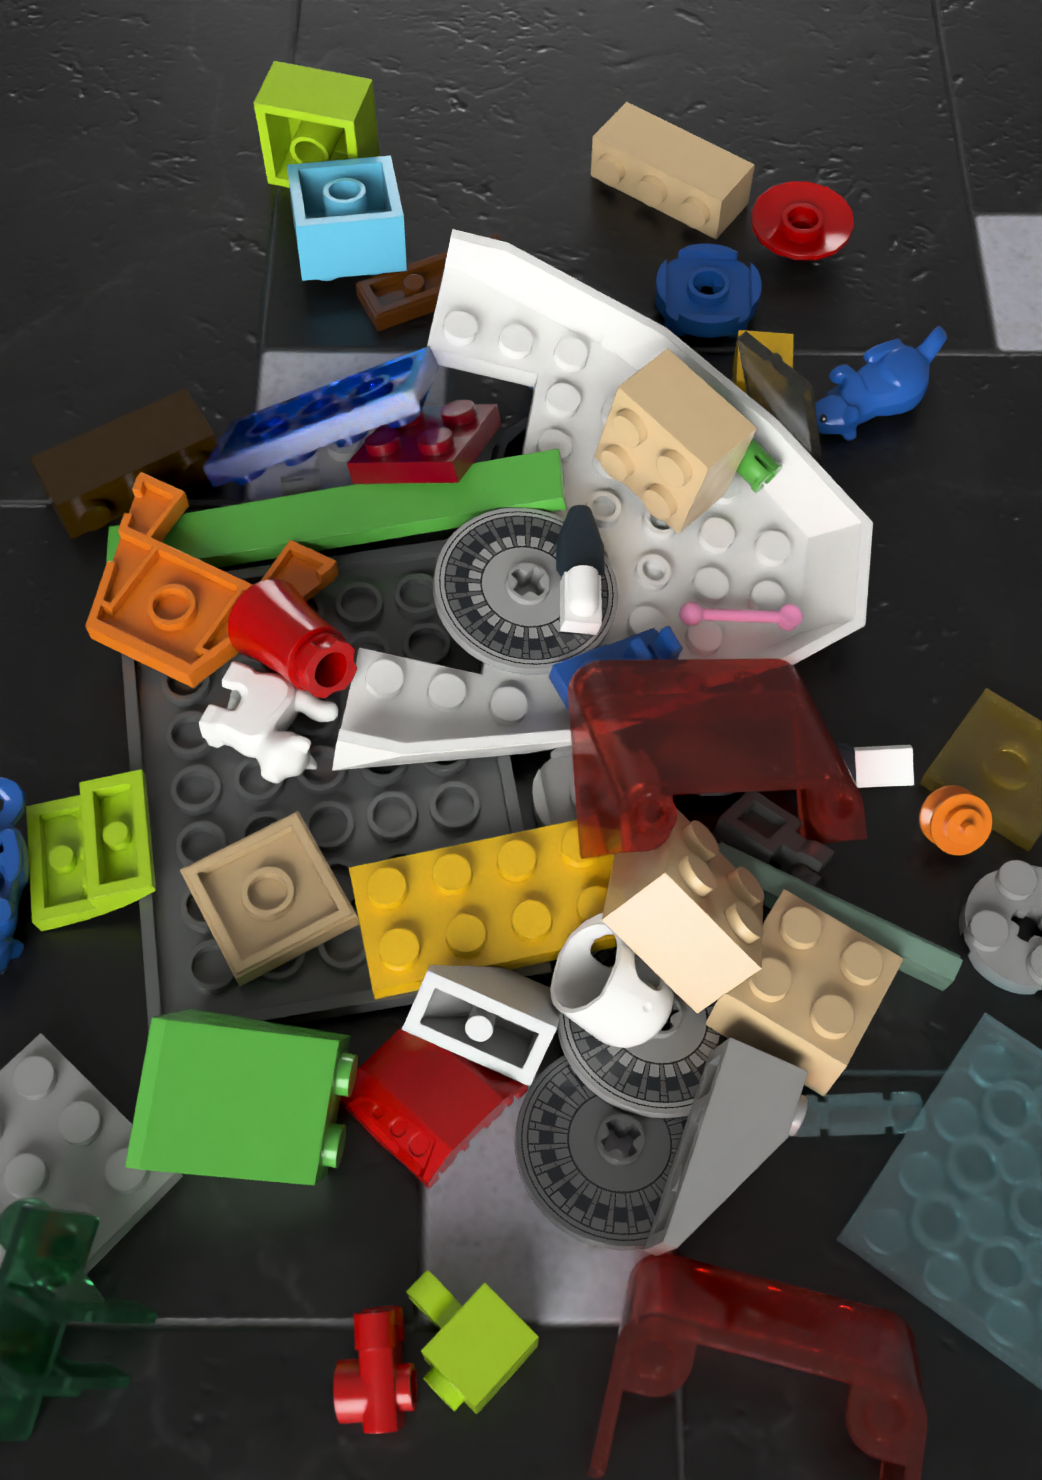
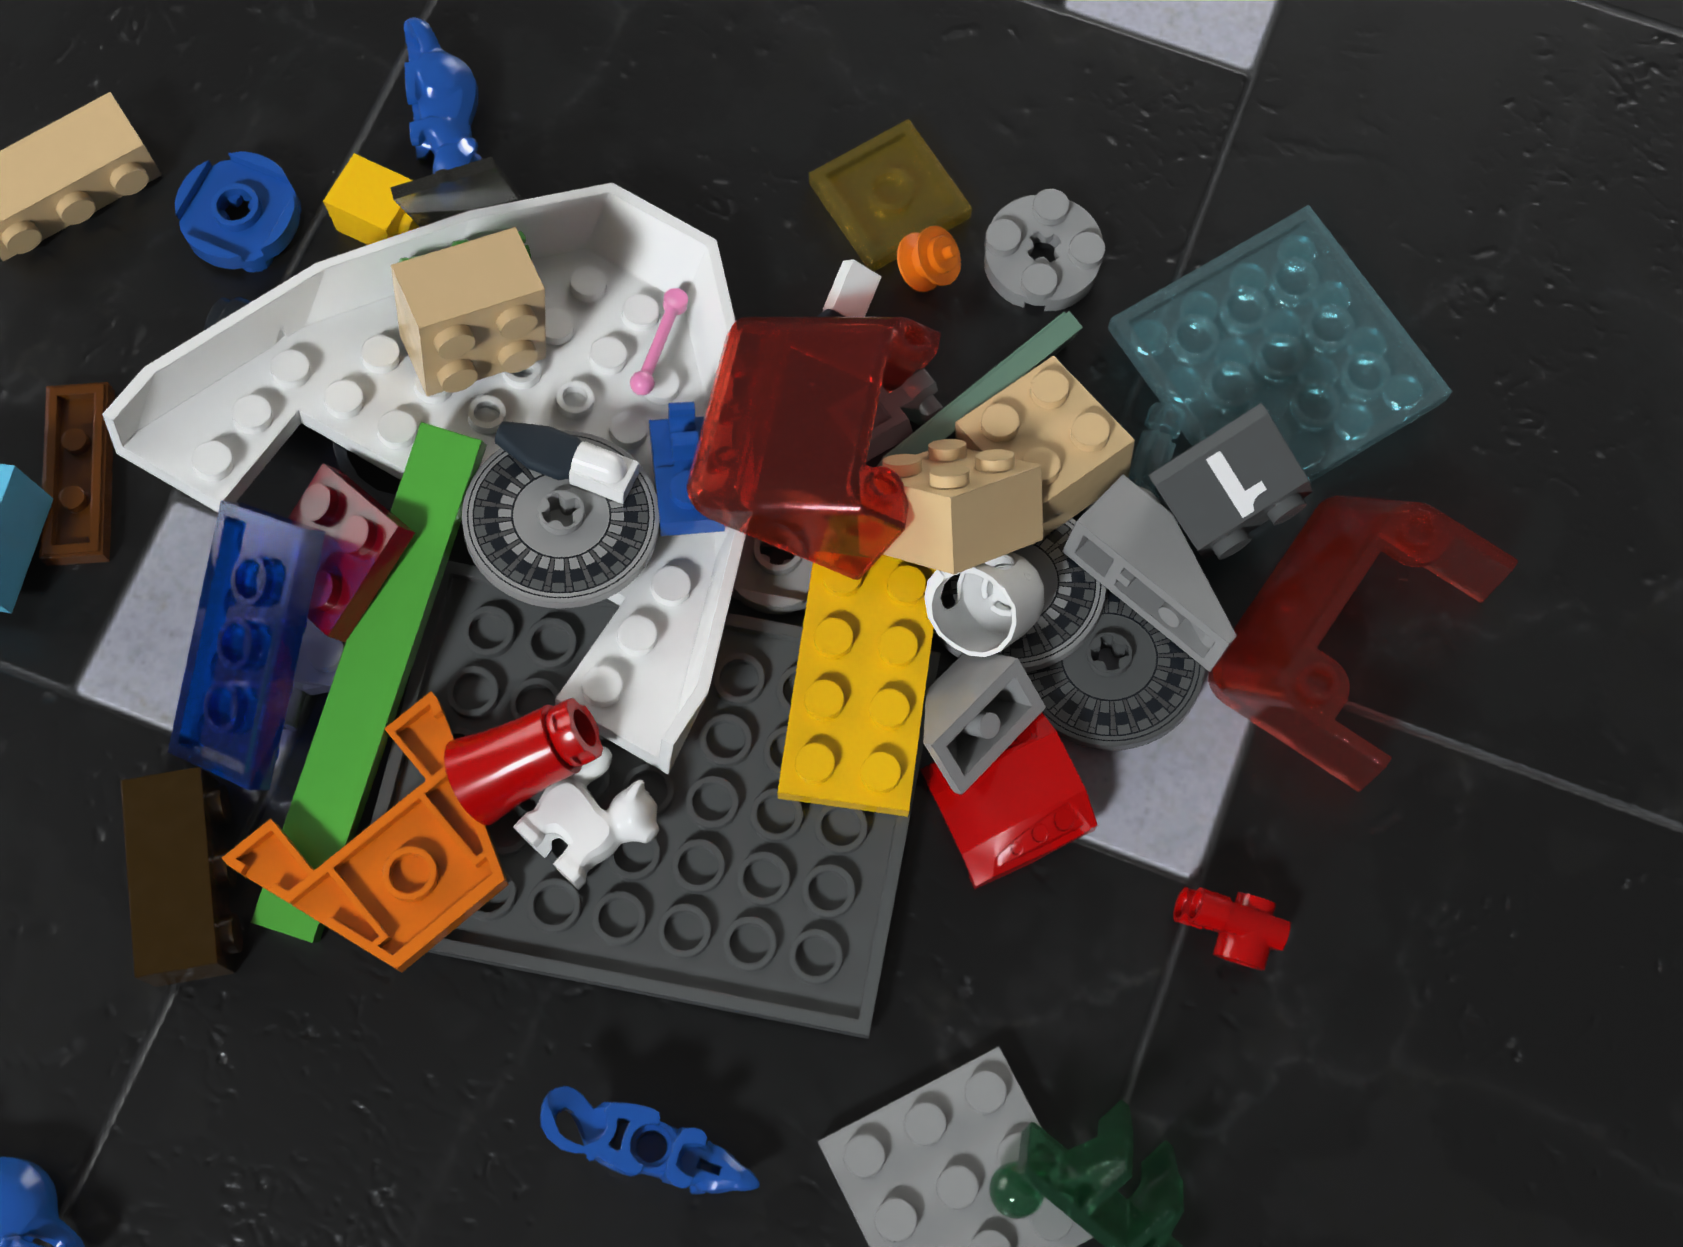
camera: 70 degrees left, 10 degrees up
(90, 851) = (645, 1038): lime slope -> none
(240, 1099) = (970, 957): bright green slope -> none
(269, 898) = (772, 879): tan tile -> none
(476, 1342) = (1238, 835): lime brick -> none
(802, 220) = (192, 63): red dish -> none
(848, 1186) = (1233, 484): none -> dark grey slope

